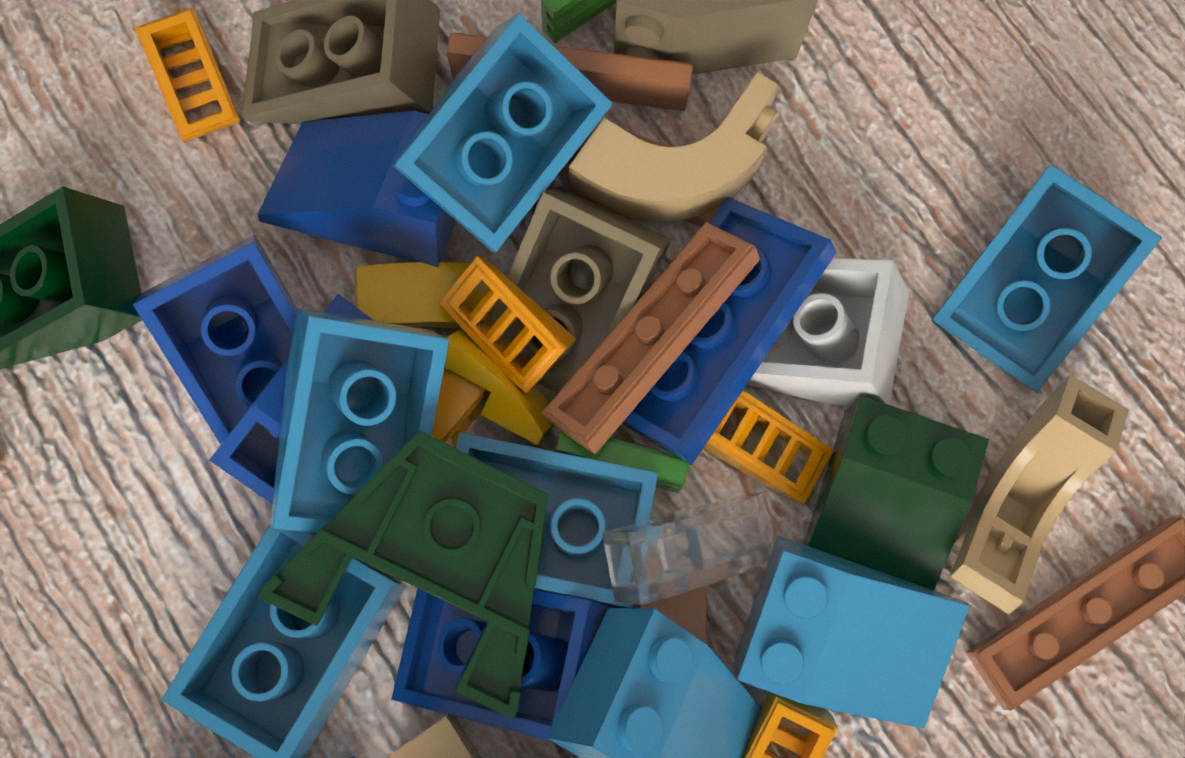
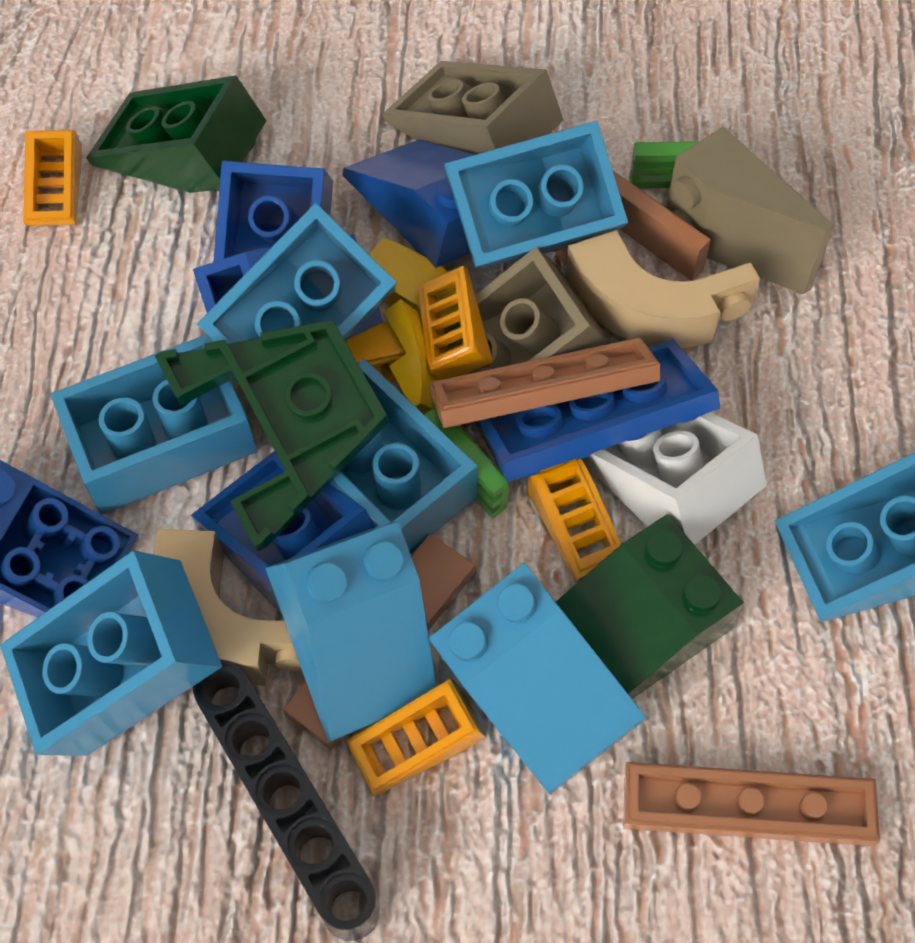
camera: 40 degrees right, 15 degrees down
(173, 31) = (375, 41): light orange slope -> none
(688, 548) = (463, 527): clear slope -> none
(1031, 486) = (761, 673): tan arch -> none

